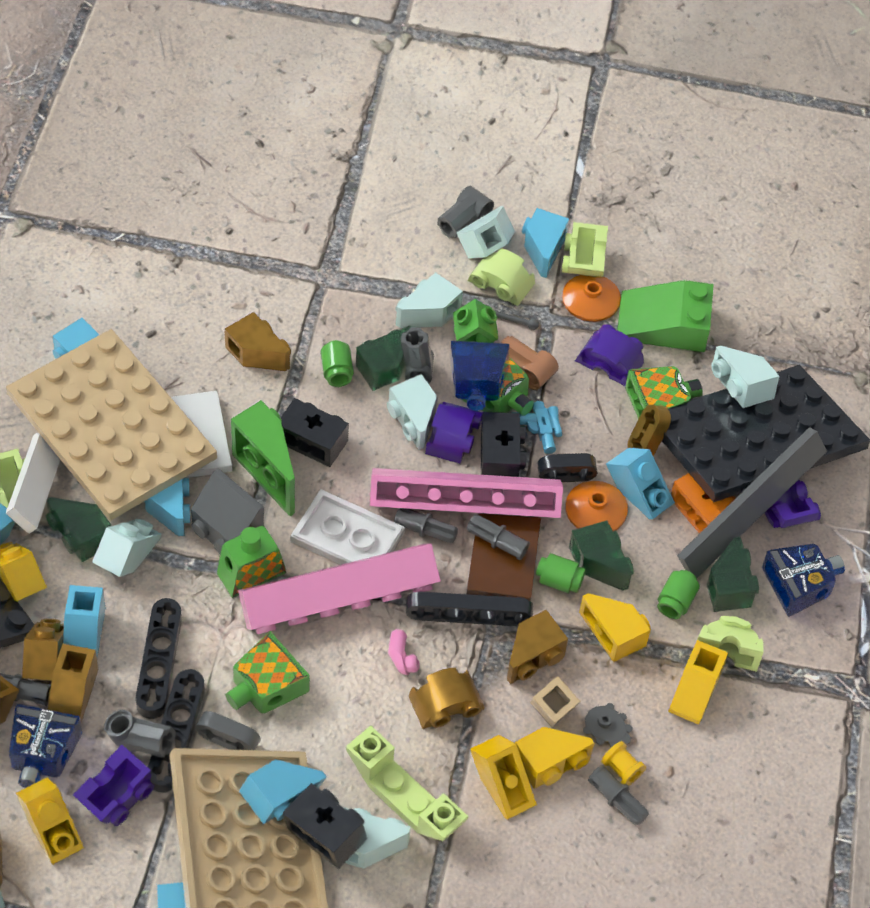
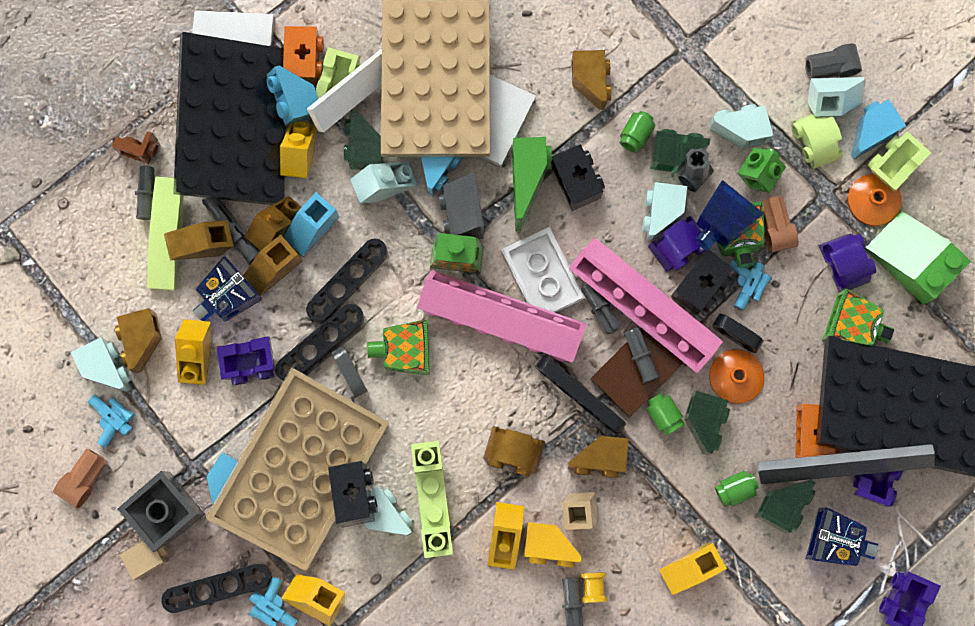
camera: 40 degrees right, 25 degrees up
(139, 734) = (288, 334): dark grey piece -> none
(277, 786) = (343, 444): medium azure slope -> none
(396, 651) = (505, 393): bright pink arm -> none
(532, 323) = (810, 193): dark grey hinge -> none
(607, 725) = (608, 549): dark grey piece -> none
(615, 625) = (672, 482): yellow slope -> none
(641, 481) = (782, 382): medium azure slope -> none
(647, 431) = (812, 350): pearl gold beam -> none
(737, 639) = (745, 554): yellowish green cylinder -> none
(745, 375) = (927, 358): light aqua slope -> none

